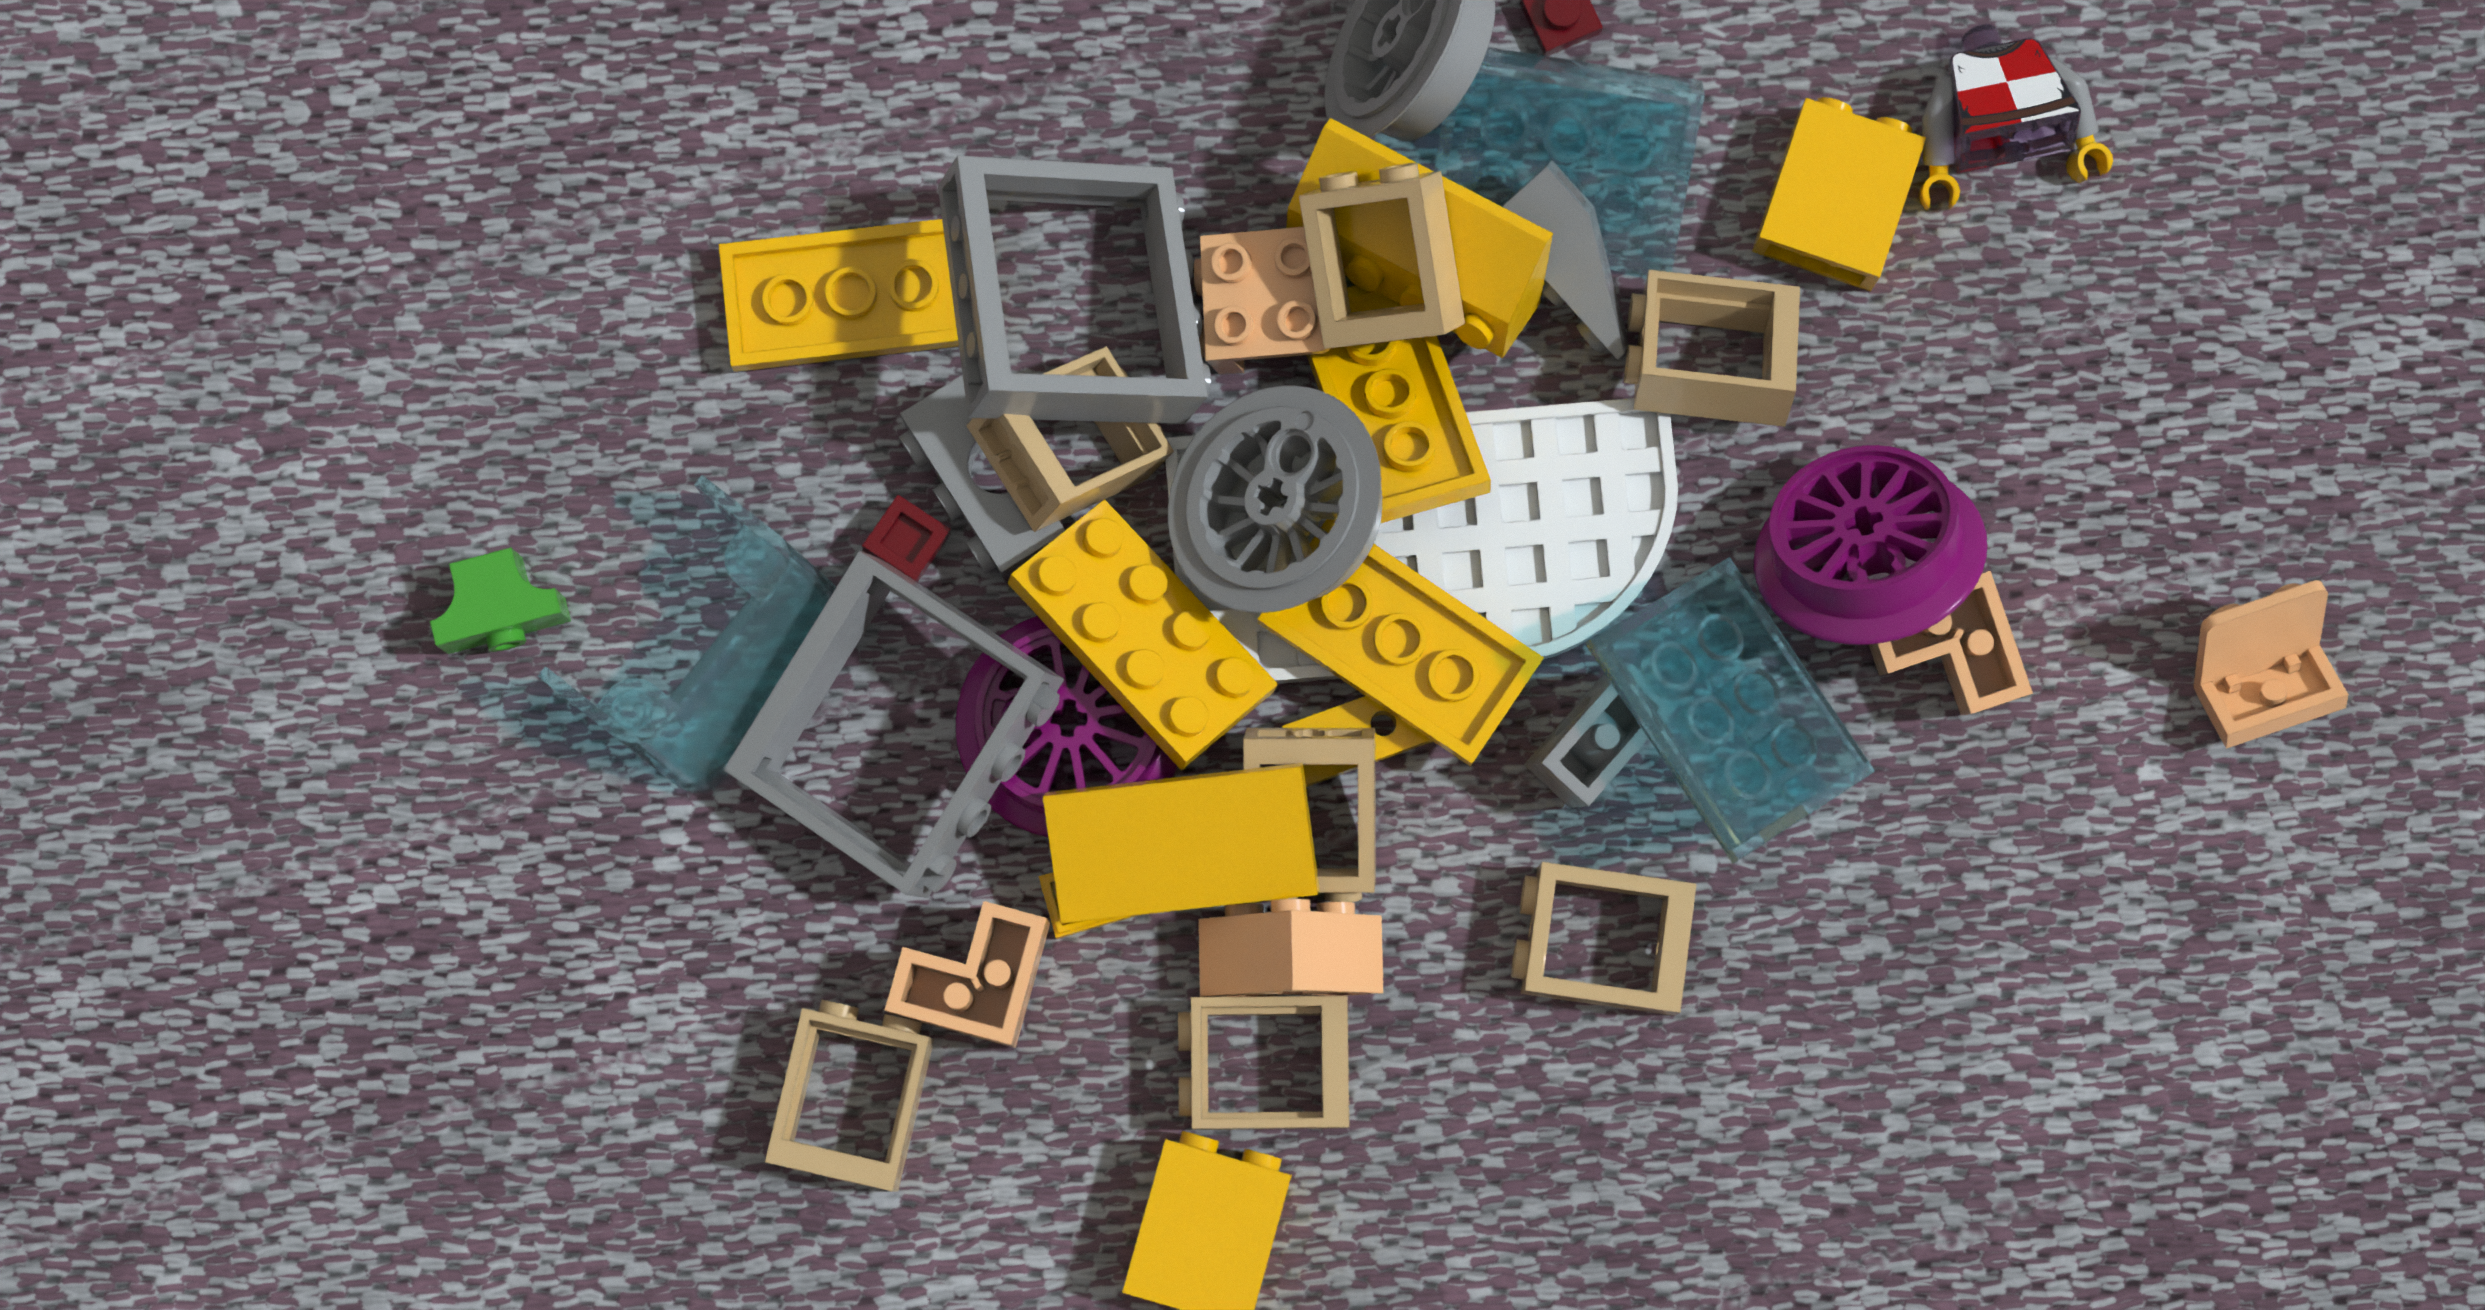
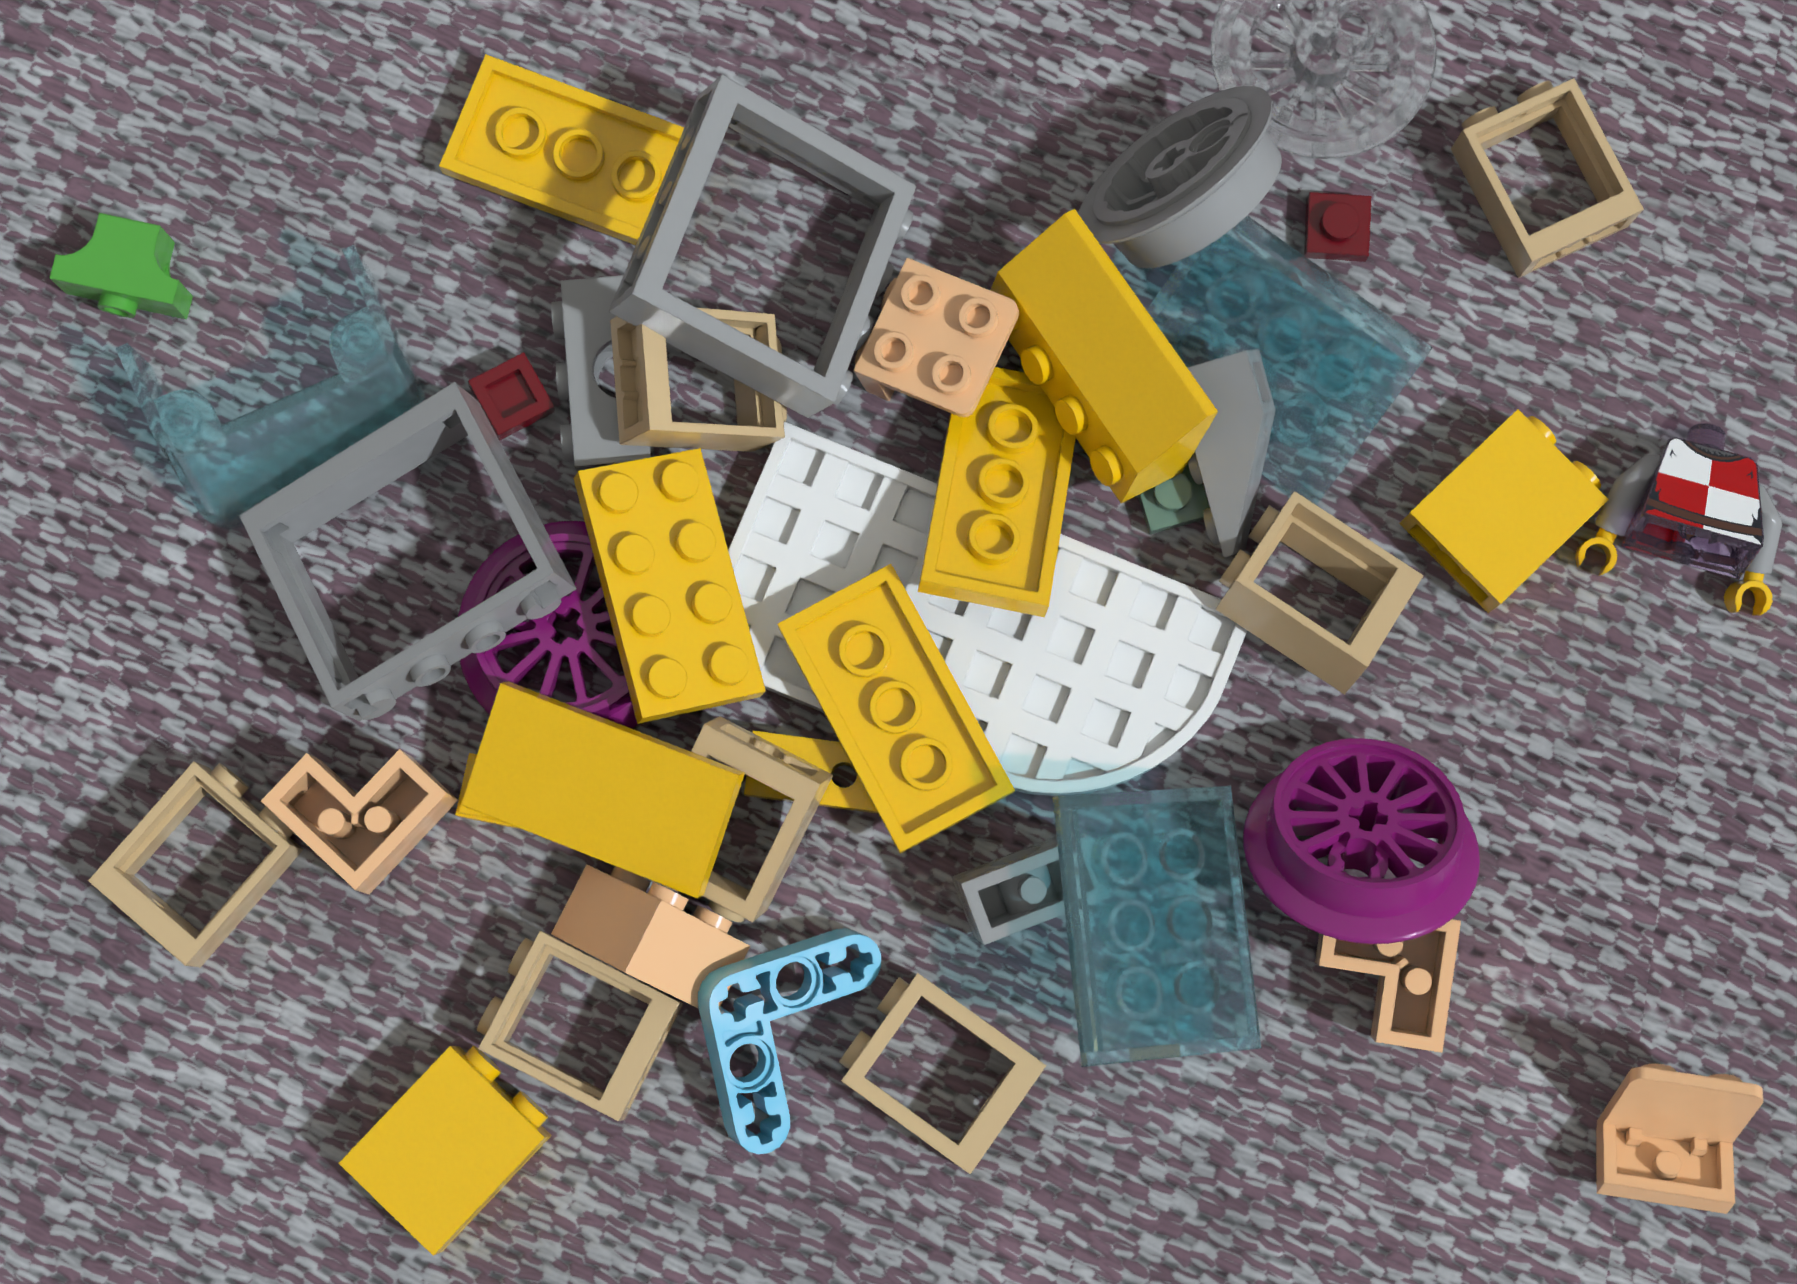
camera: 25 degrees right, 0 degrees up
(1279, 425) = (847, 527): light grey piece -> none
(1420, 982) = (752, 1019): none -> medium azure beam
(1434, 252) = (1102, 368): tan window -> none
(1546, 334) = (1173, 503): none -> sand green plate

